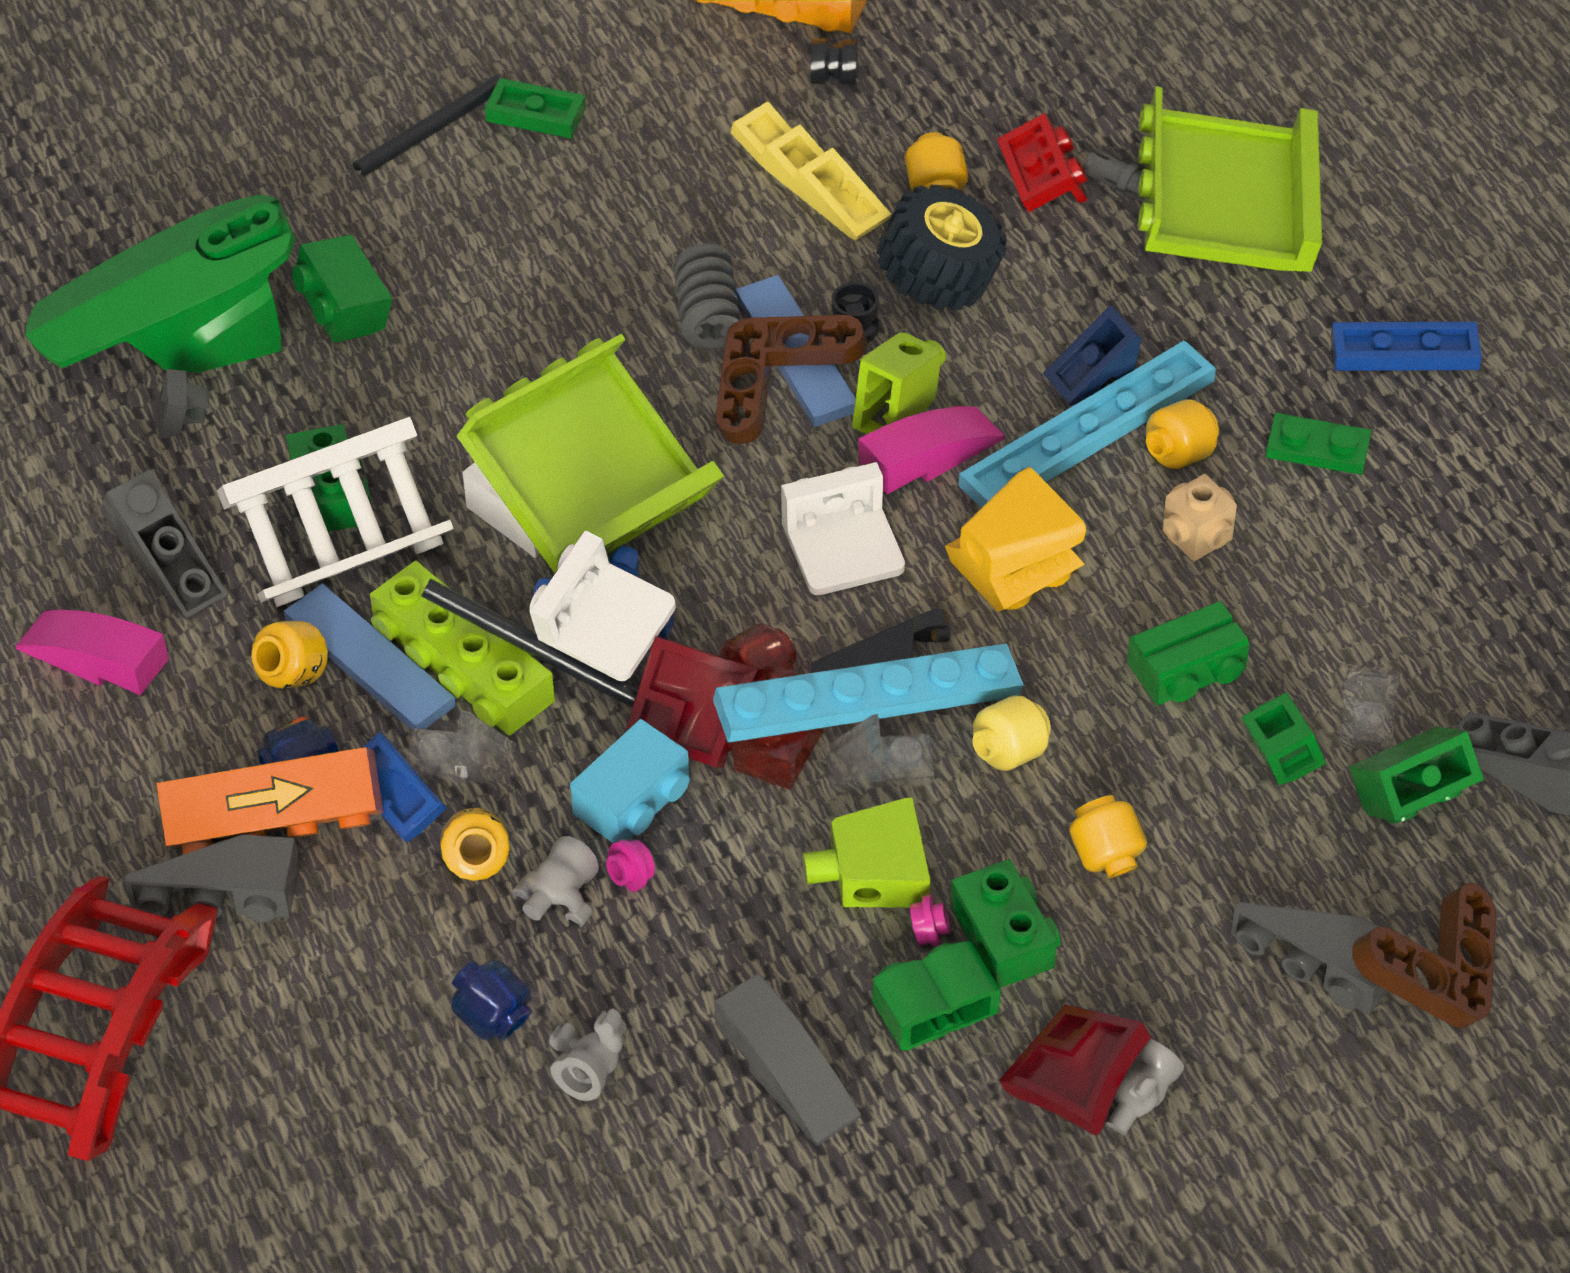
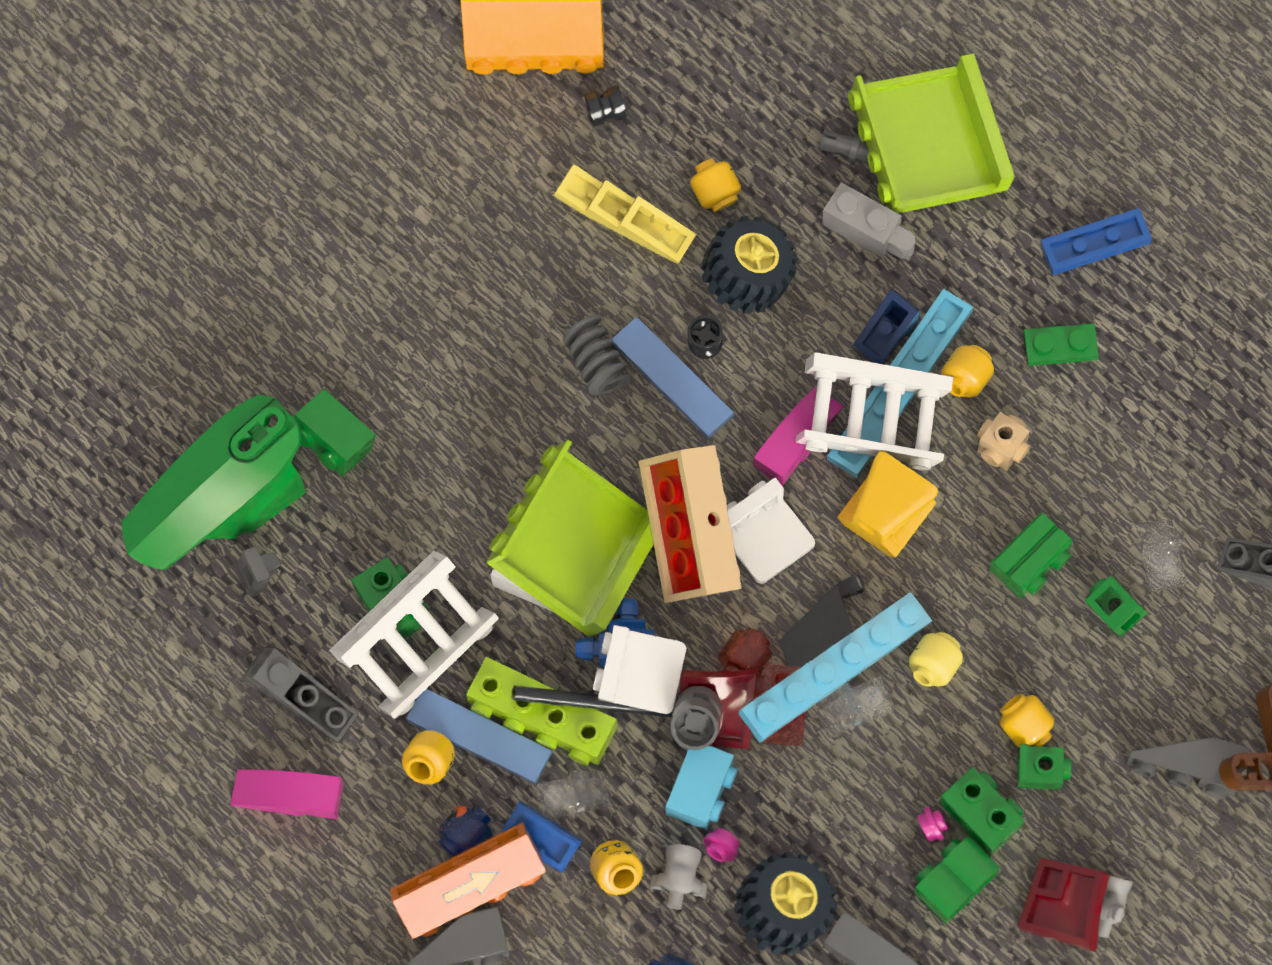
camera: 15 degrees left, 20 degrees up
(425, 127) = (328, 255): black piece -> none
(535, 108) = (402, 217): green plate -> none
(654, 687) = (696, 718): none -> dark grey wheel
(683, 944) = (785, 903): none -> black wheel
(742, 477) = (690, 523): none -> tan brick
(770, 351) = (660, 390): reddish brown beam -> none
(874, 857) = (881, 788): lime torso -> none
(900, 373) = (763, 390): lime torso -> none
(1041, 162) = (789, 155): red bracket -> none
(1056, 390) = (895, 383): none -> white fence
(1107, 897) = (1032, 776): none -> green brick
(1111, 249) = (867, 223): none -> light grey brick
(1416, 774) = (1212, 608): green brick -> none

